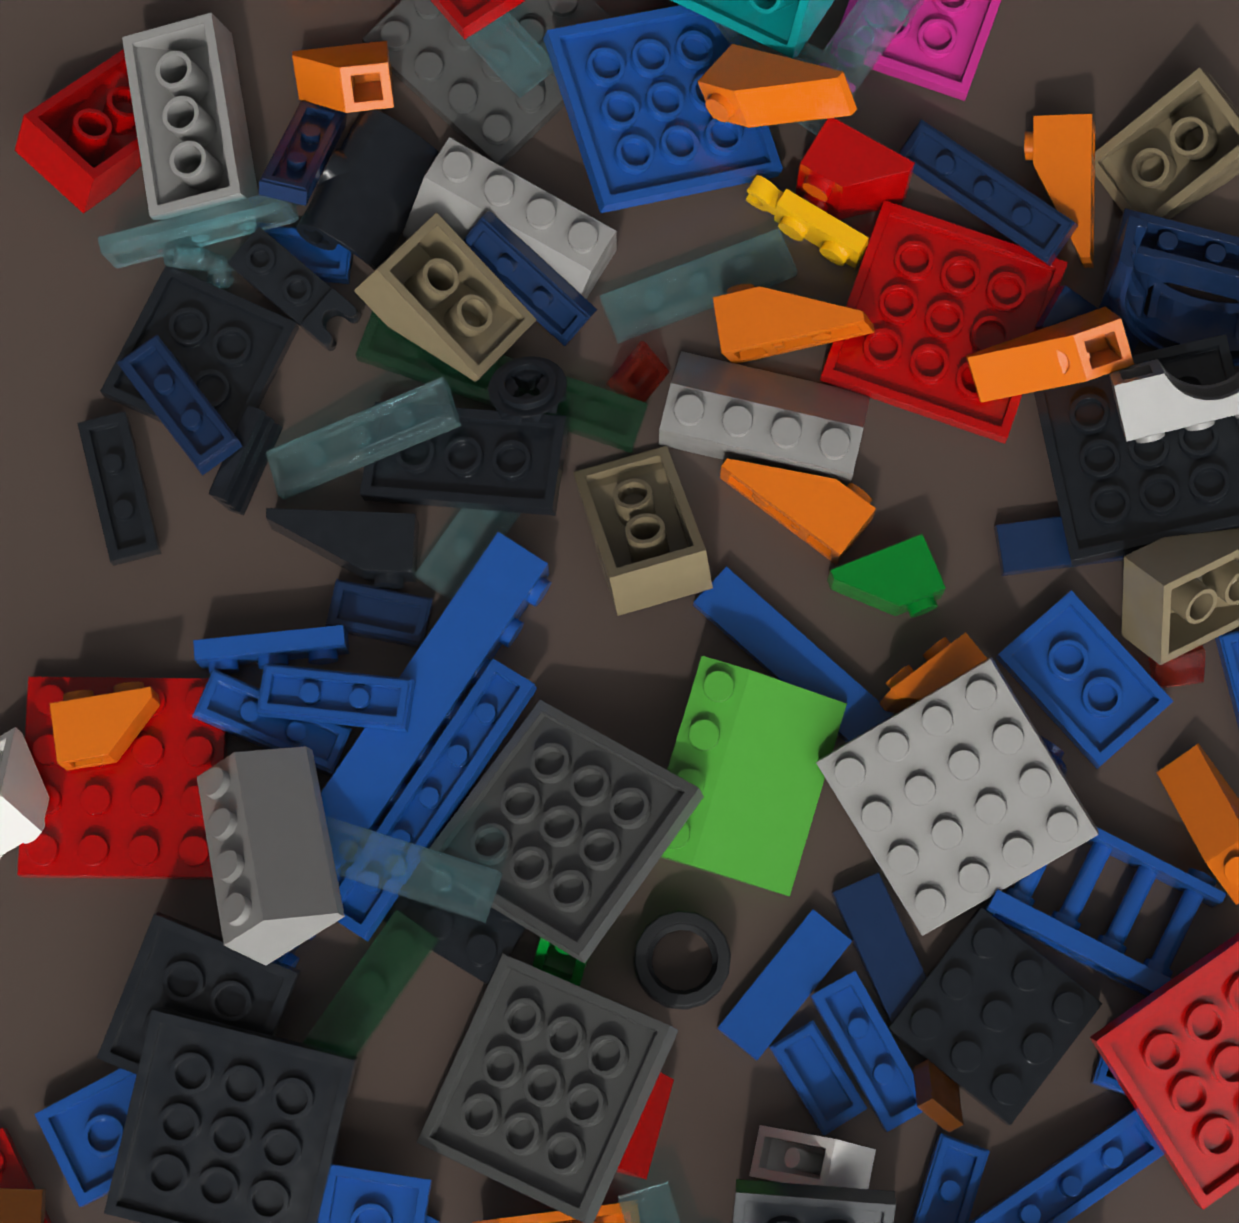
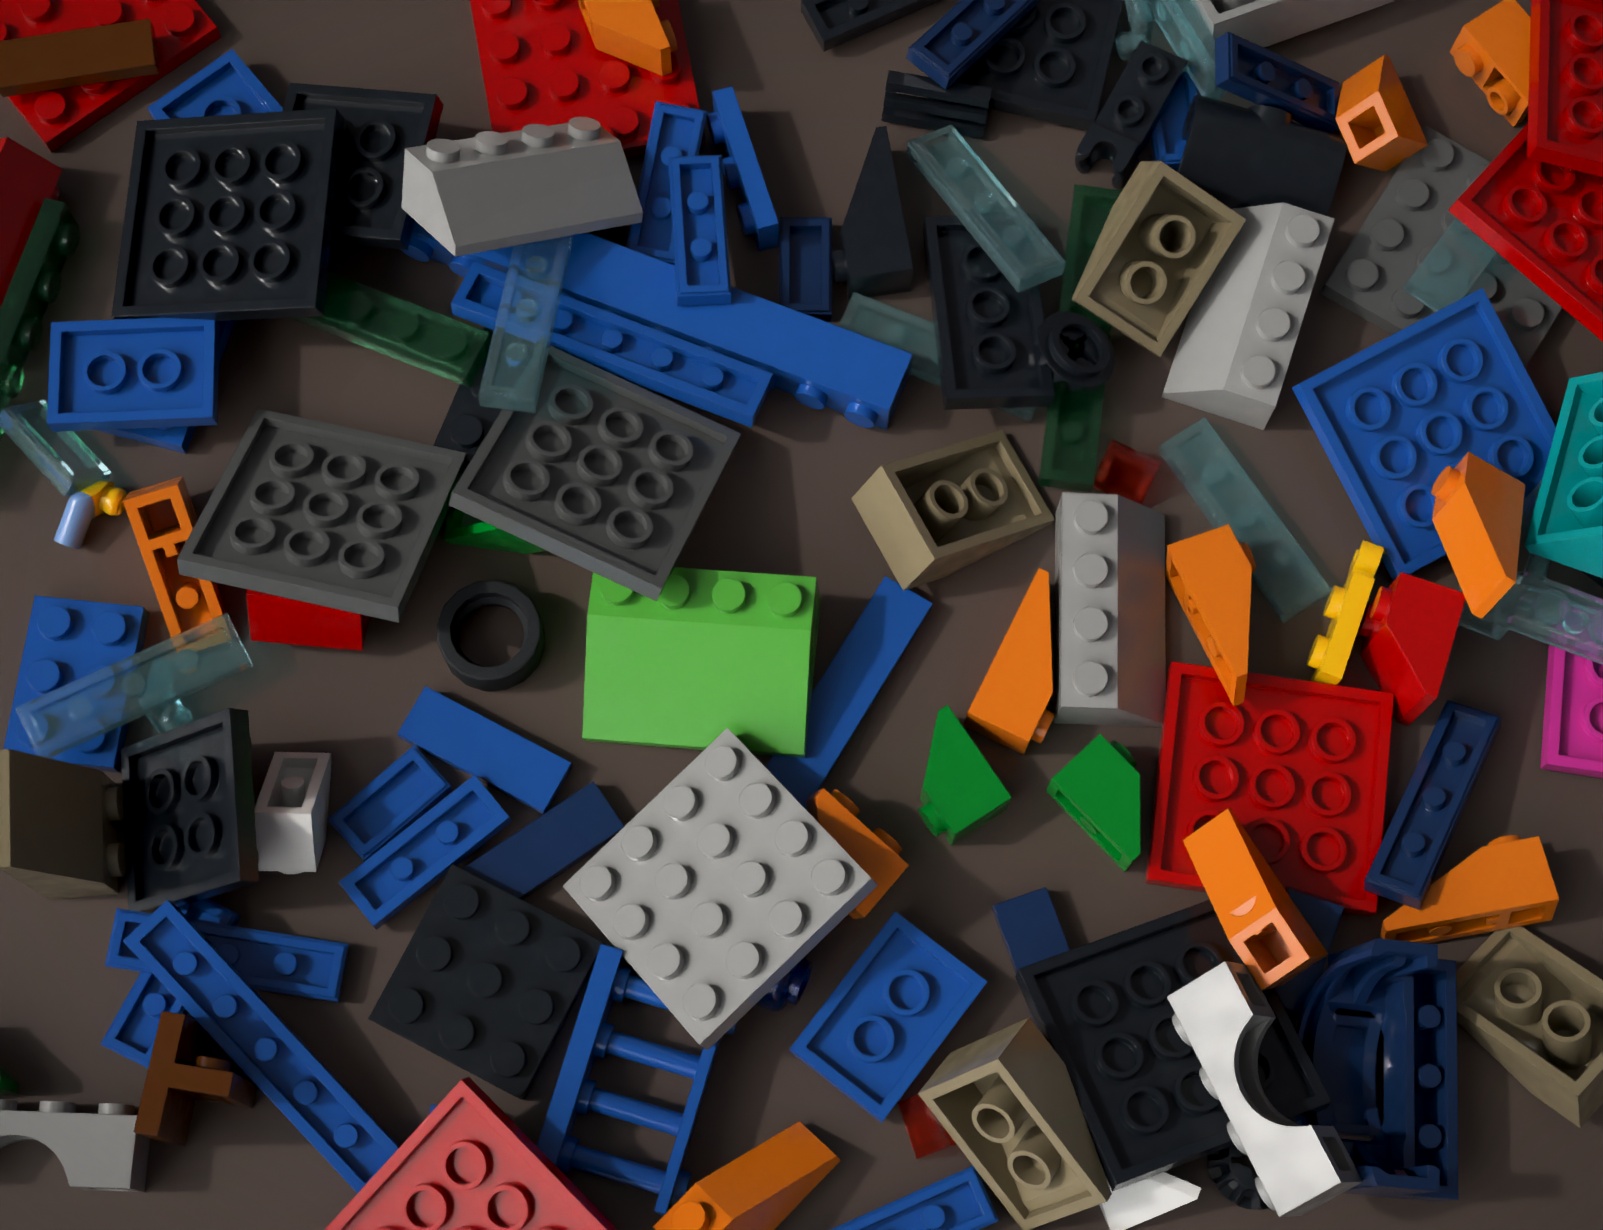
camera: 75 degrees right, 5 degrees down
(530, 278) = (1201, 335): dark blue tile -> none
(929, 459) = (1103, 798): none -> green slope
(938, 1096) = (384, 929): reddish brown tile -> none

